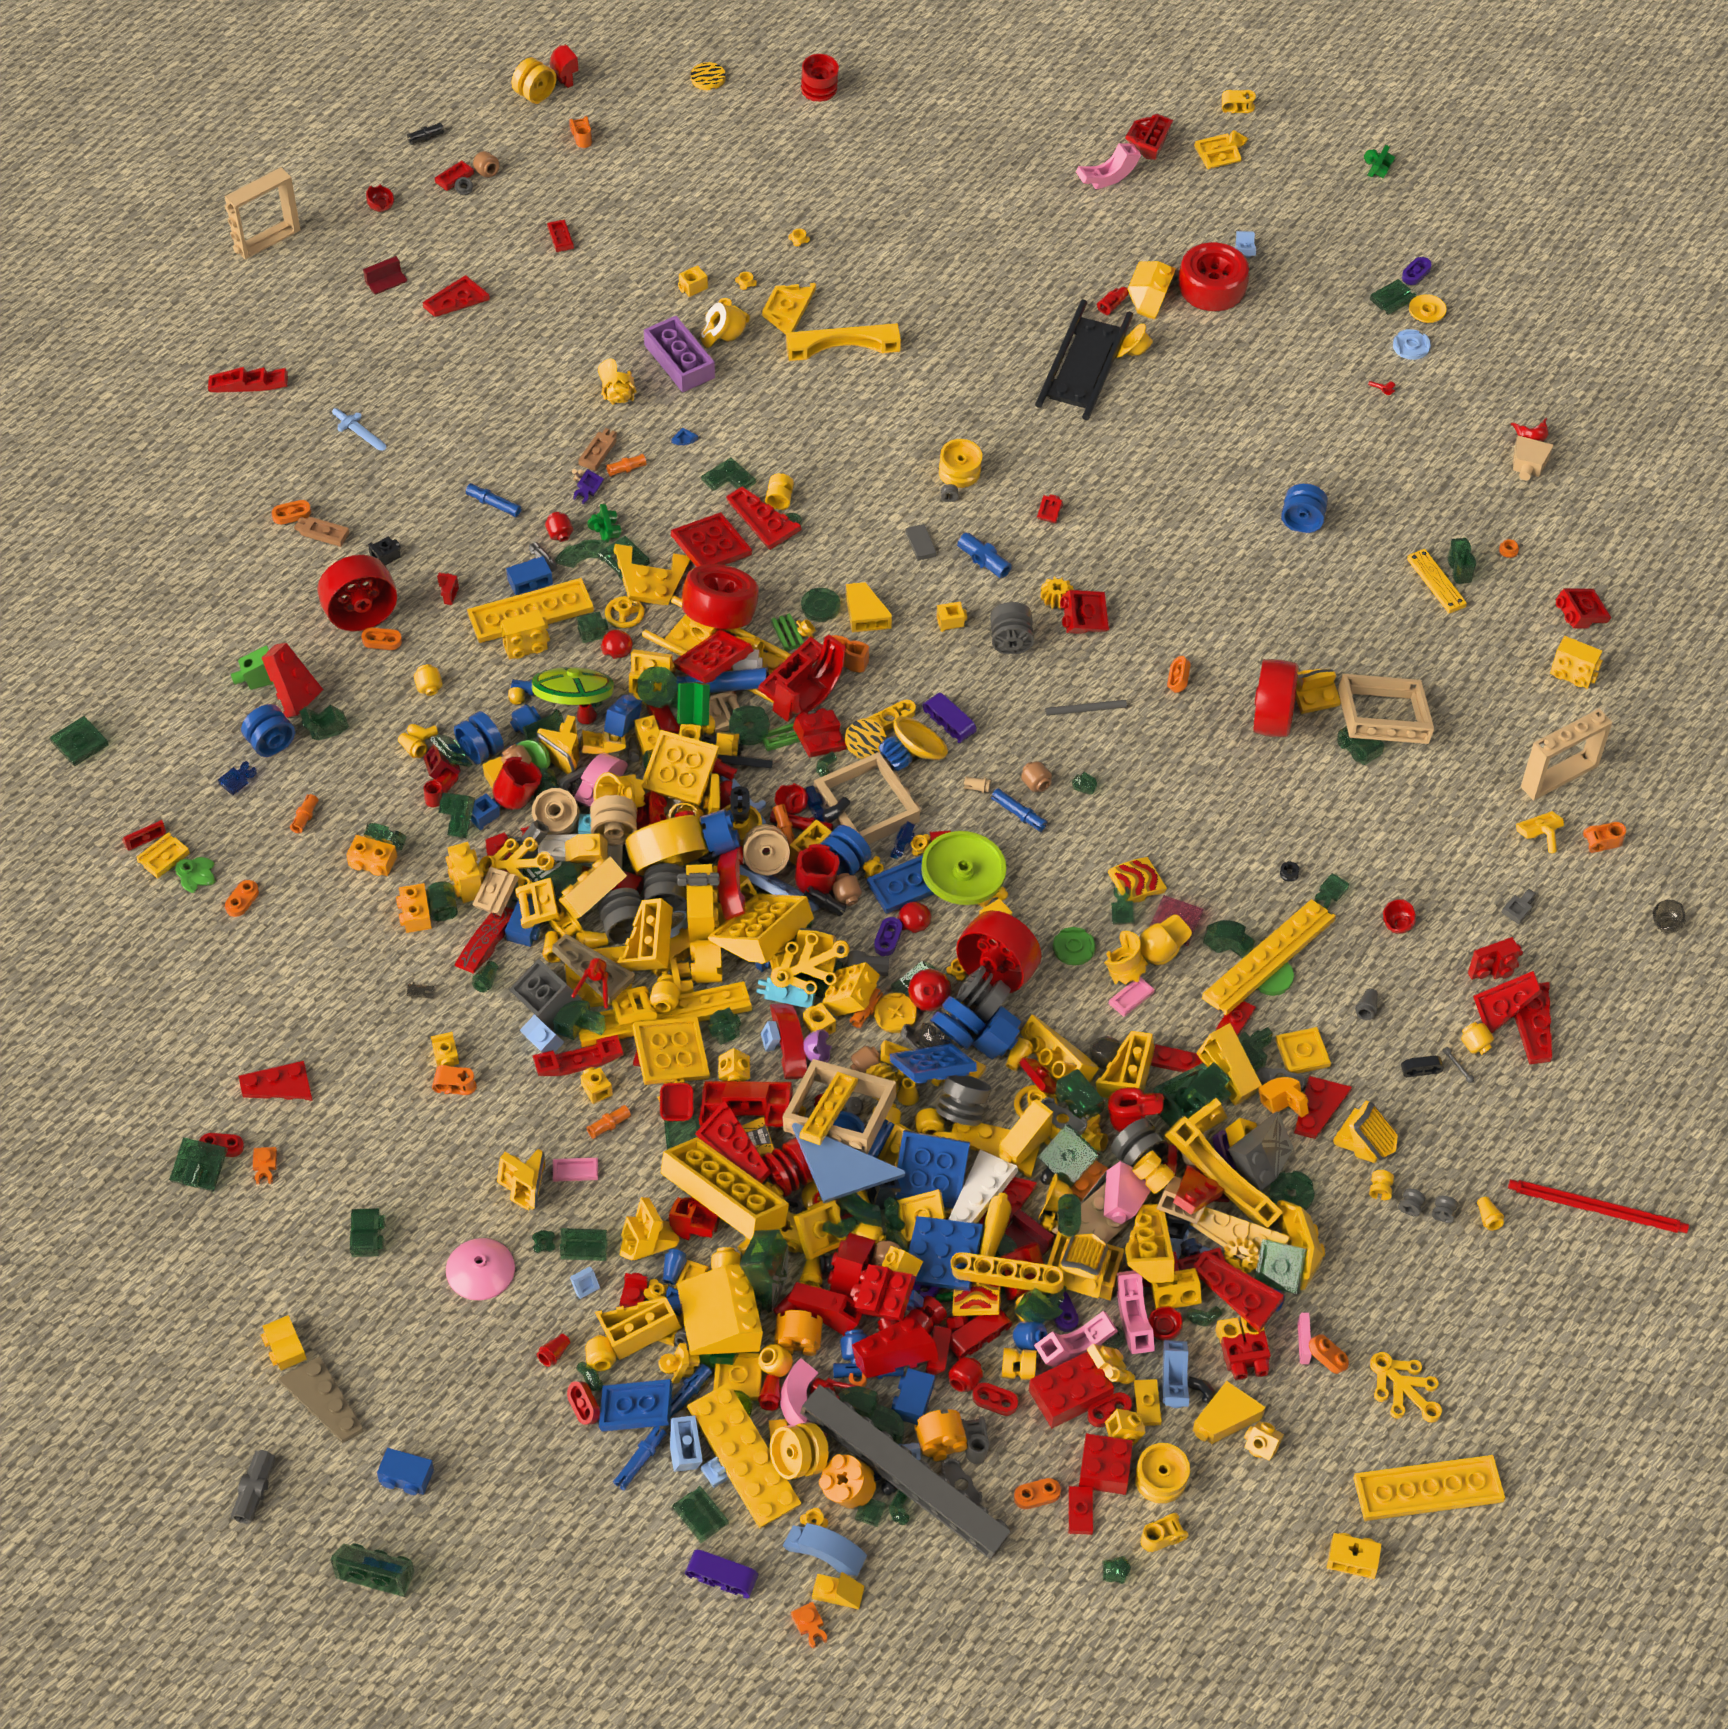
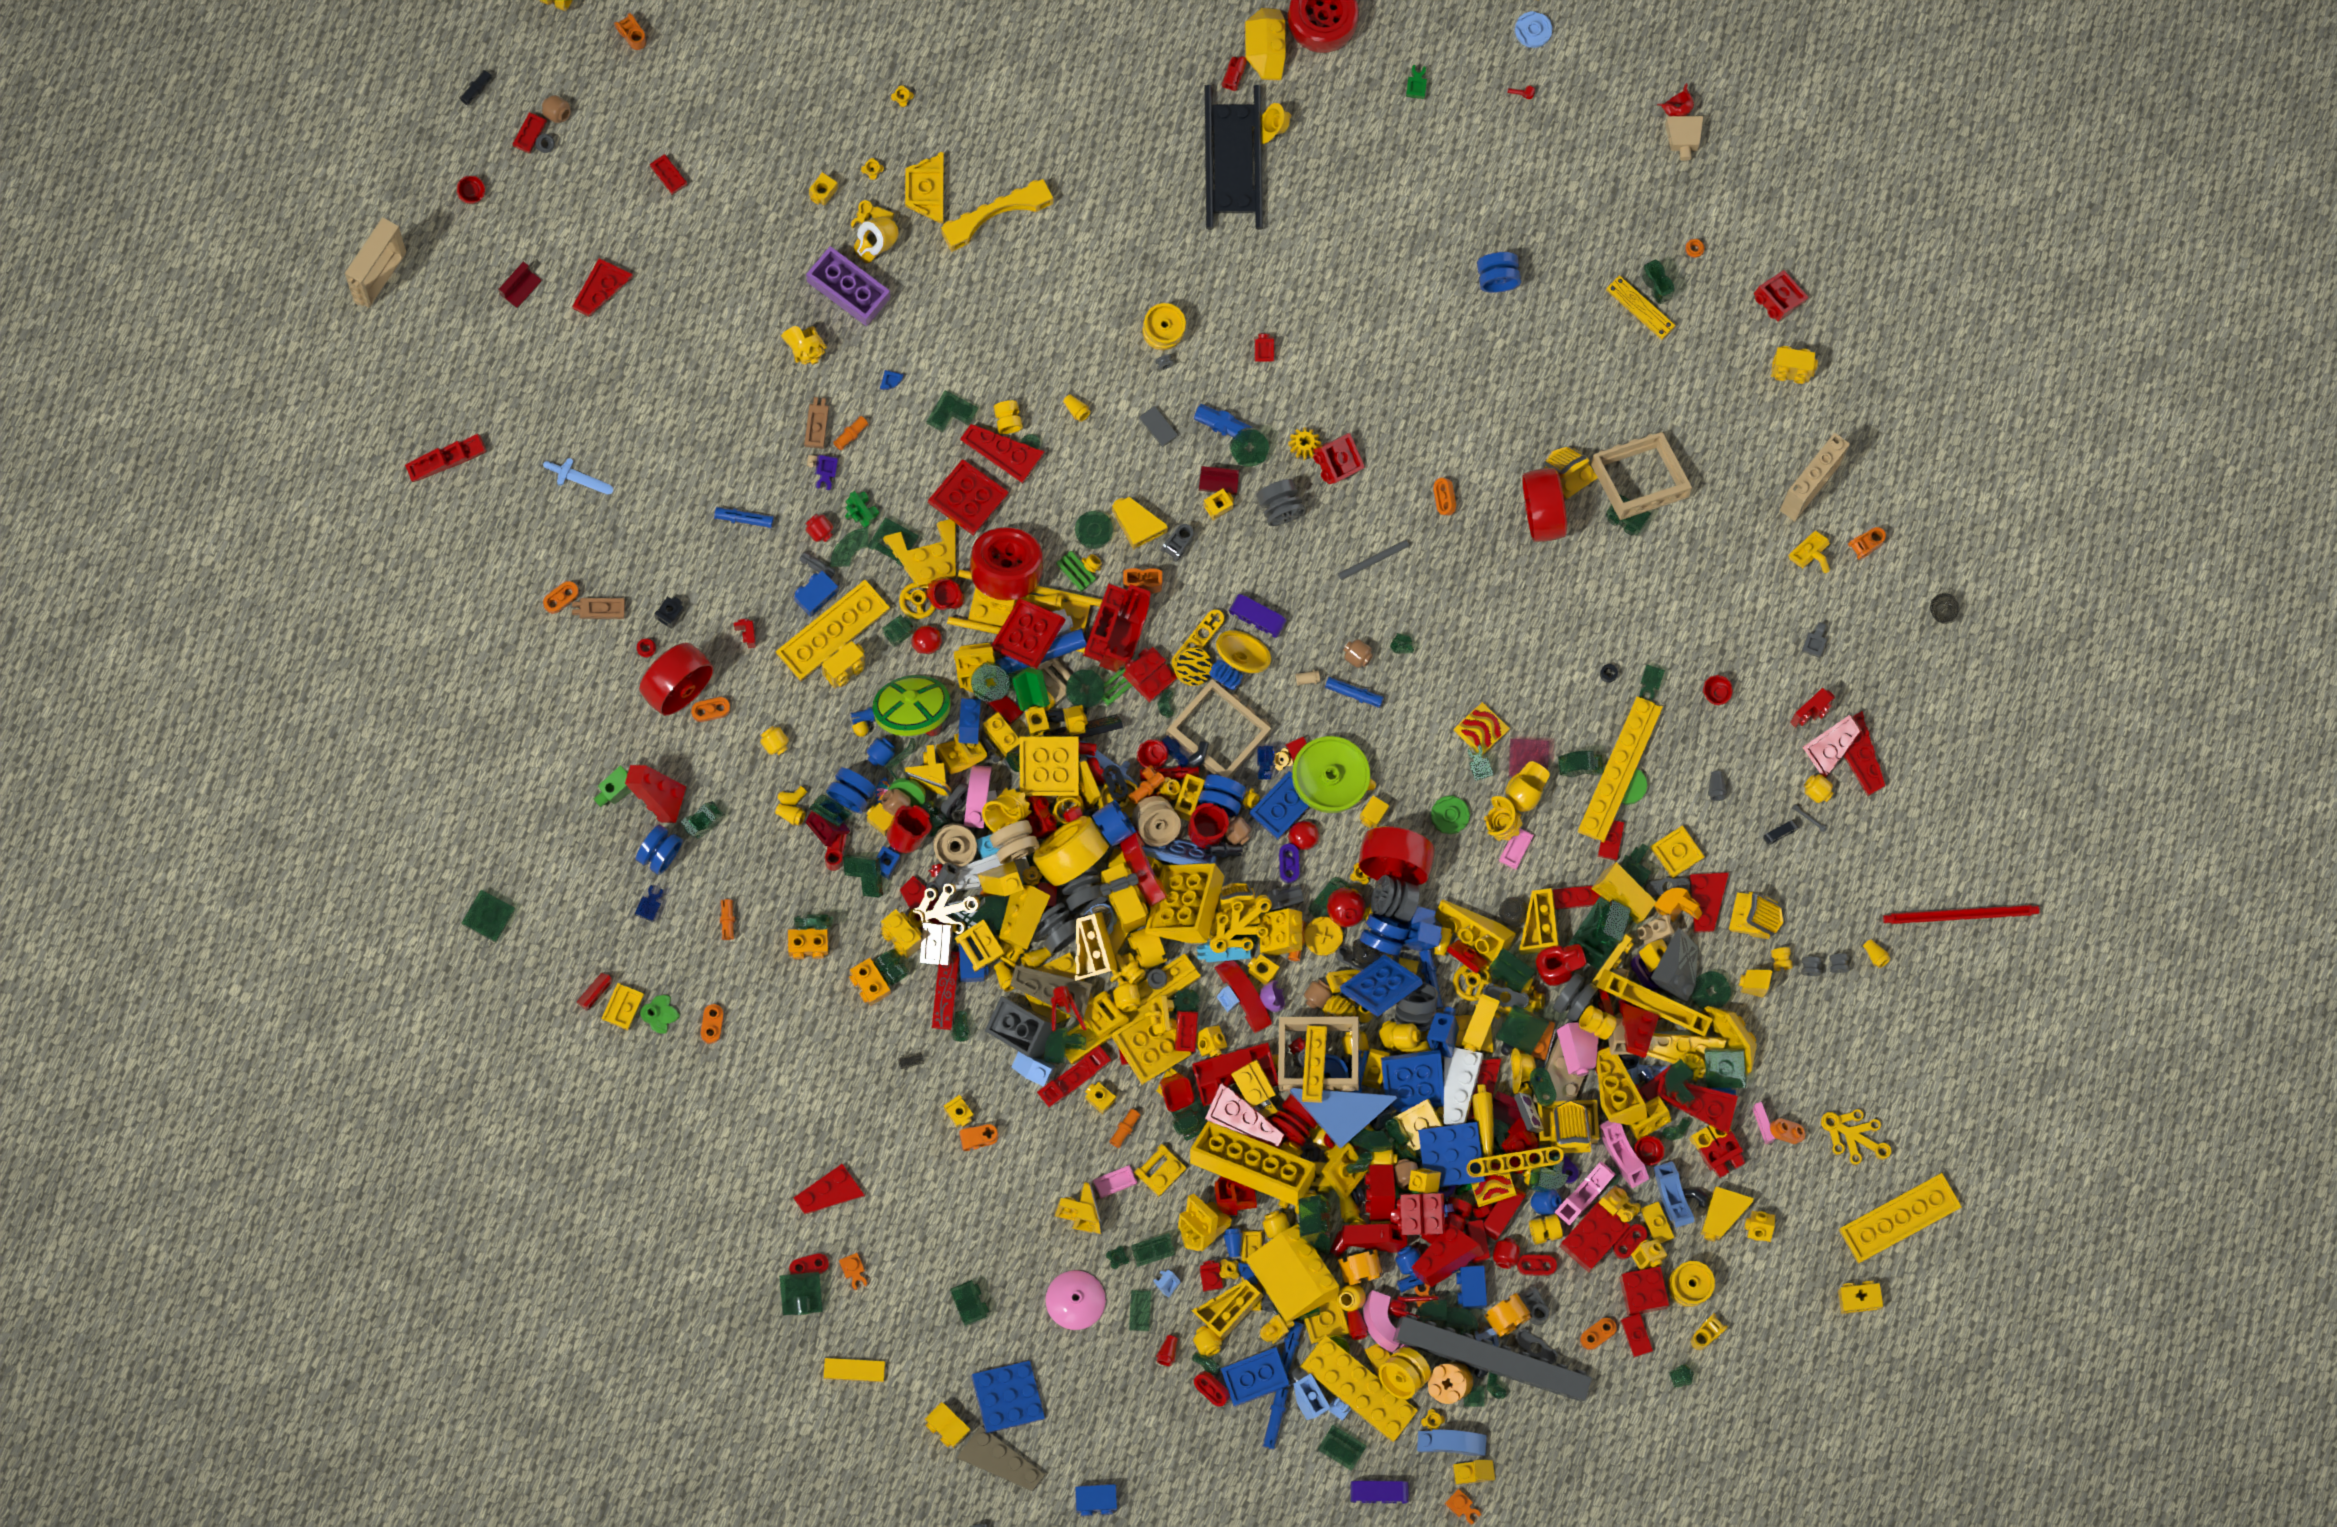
camera: 25 degrees left, 20 degrees up
(216, 1258) = (854, 1370): none -> yellow tile
(361, 1337) = (1007, 1397): none -> blue plate
(543, 1301) = (1139, 1310): none -> clear green tile
(624, 862) = (1032, 880): none -> yellow plate
(631, 1179) = (1165, 1175): none -> yellow plate
(651, 610) = (945, 594): none -> red hair
(674, 1132) = (1187, 1122): none -> clear green head
(680, 973) = (1133, 972): none -> yellow wheel
(688, 1021) = (1159, 1015): none -> yellow hips
(704, 993) = (1157, 979): none -> dark grey tile
(711, 1047) = (1186, 1031): none -> red plate
(759, 1113) = (1253, 1083): none -> yellow plate
(769, 818) = (1146, 788): none -> orange pin
(795, 825) = (1175, 788): none -> yellow plate
(849, 505) = (1077, 408): none -> yellow cone
(898, 635) = (1176, 545): none -> dark grey piece
(939, 1118) = (1405, 1036): none -> yellow head
(960, 592) = (1215, 479): none -> dark red panel
(982, 1131) = (1444, 1032): none -> blue torso
(993, 1078) = (1429, 972): none -> blue pin
(1010, 572) = (1241, 440): none -> clear green plate
(1043, 1235) = (1528, 1112): none -> tile
(1219, 1255) = (1675, 1079): none -> clear green brick
(1256, 1109) = (1655, 930): none -> tan hips
(1282, 353) = (1416, 85): none -> green plate
(1344, 1196) = (1755, 982): none -> yellow slope

